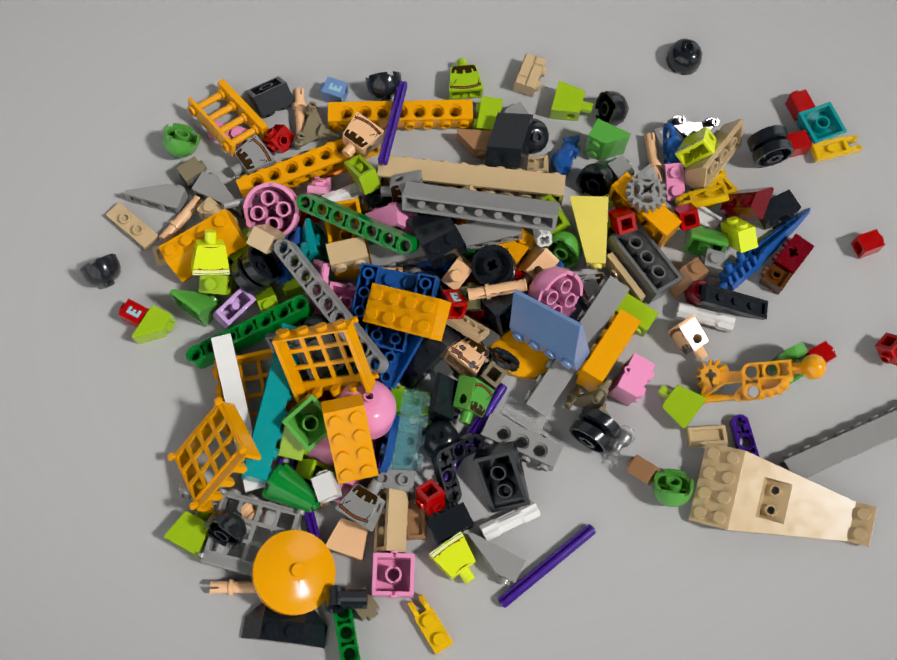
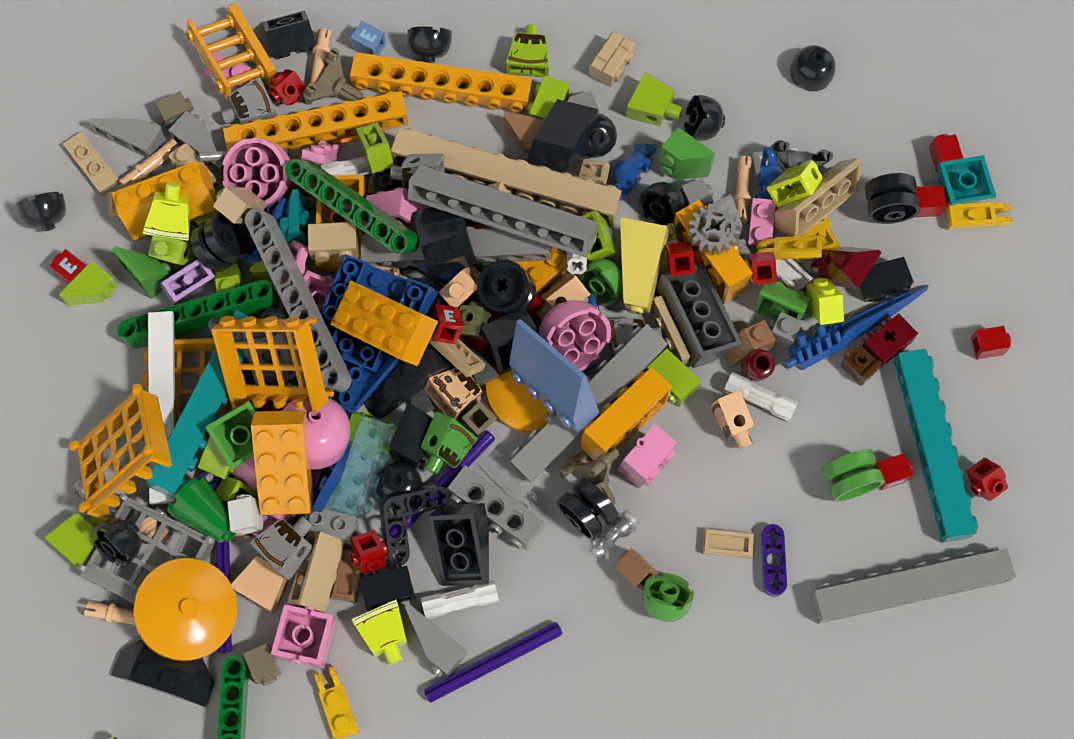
camera: 15 degrees right, 0 degrees up
(180, 140) = (168, 68): bright green cylinder -> none
(340, 598) = (232, 651): black piece -> none
(361, 136) = (384, 101): light nougat torso -> none
(392, 123) = (424, 91): dark purple axle -> none
(497, 289) = (494, 315): light nougat pin -> none
(498, 354) = (500, 399): black piece -> none
(681, 403) = (703, 498): lime torso -> none
(734, 301) = (799, 384): black tile -> none
(738, 491) = (750, 617): tan wing -> none
(811, 367) = (869, 482): light orange arm -> none
(846, 331) = (934, 446): none -> teal brick

